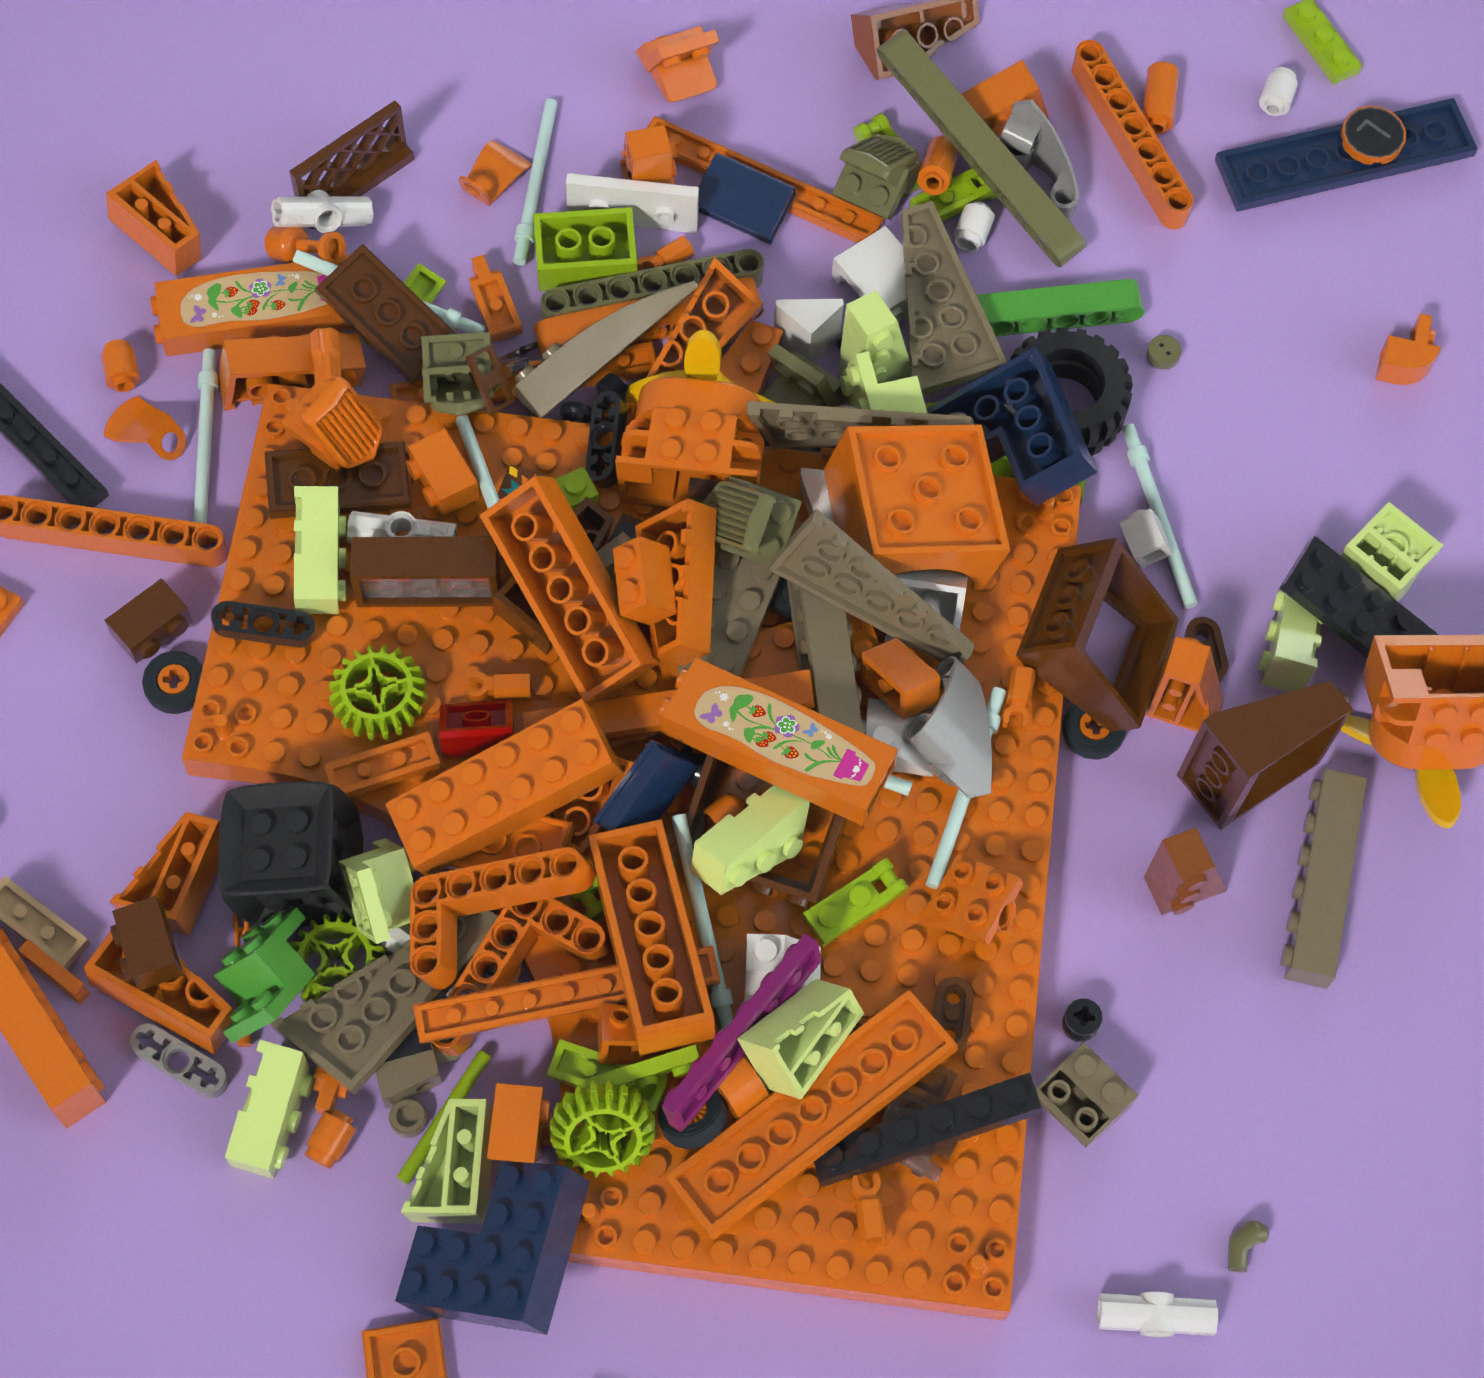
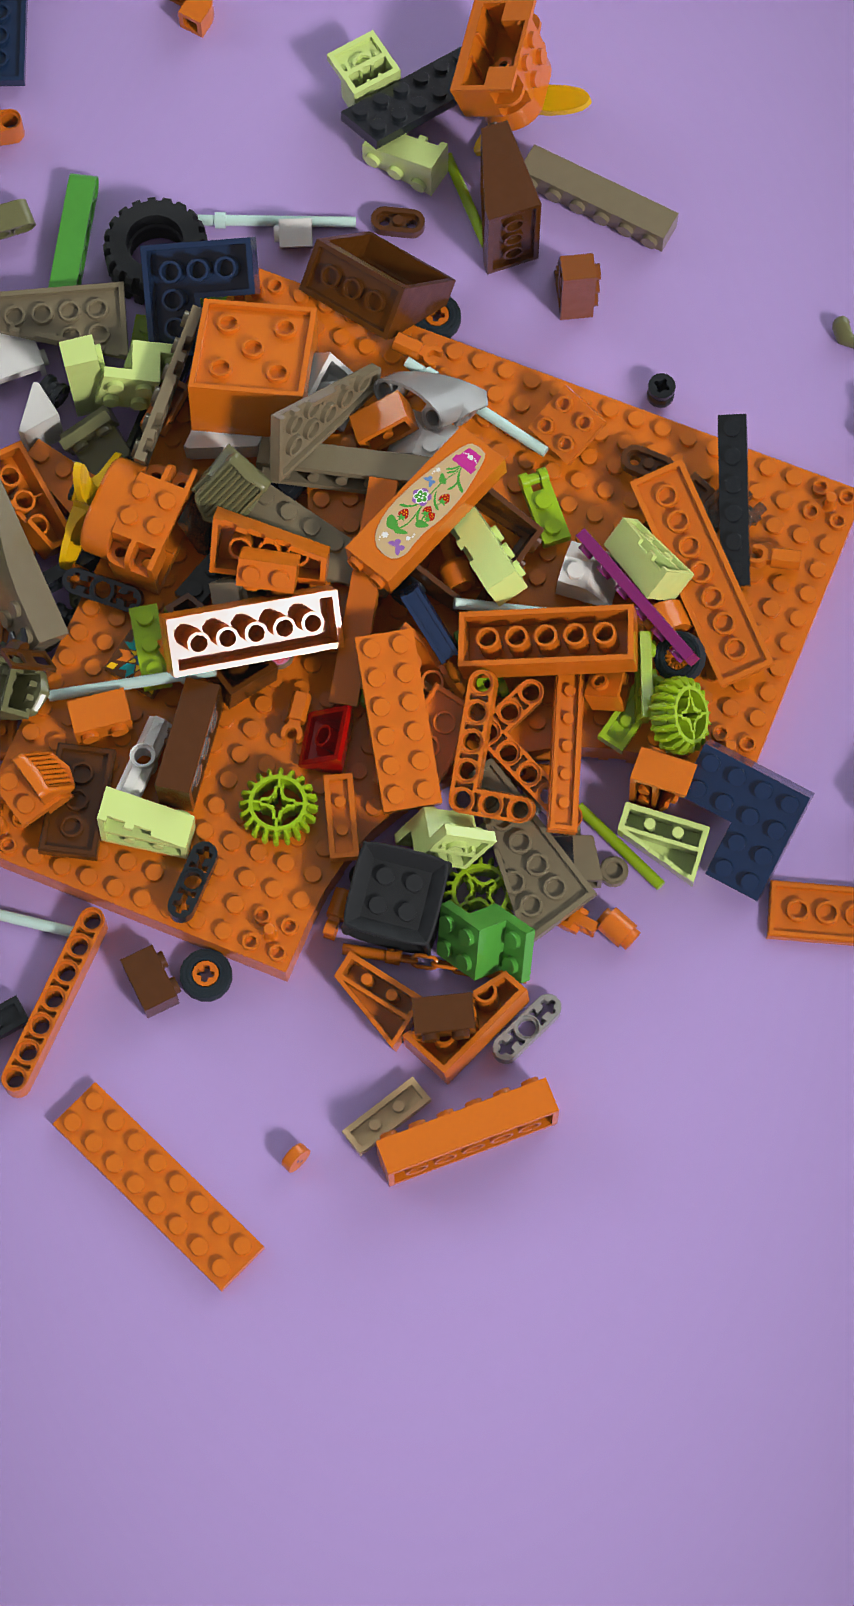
camera: 70 degrees left, 5 degrees up
(54, 971) = (434, 1104): orange tile -> none
(270, 1110) = (587, 964): yellowish green wedge -> none
(1085, 1095) = (718, 395): dark tan slope -> none
(1163, 352) = (134, 175): olive tile -> none
(1186, 686) = (431, 237): orange wedge -> none

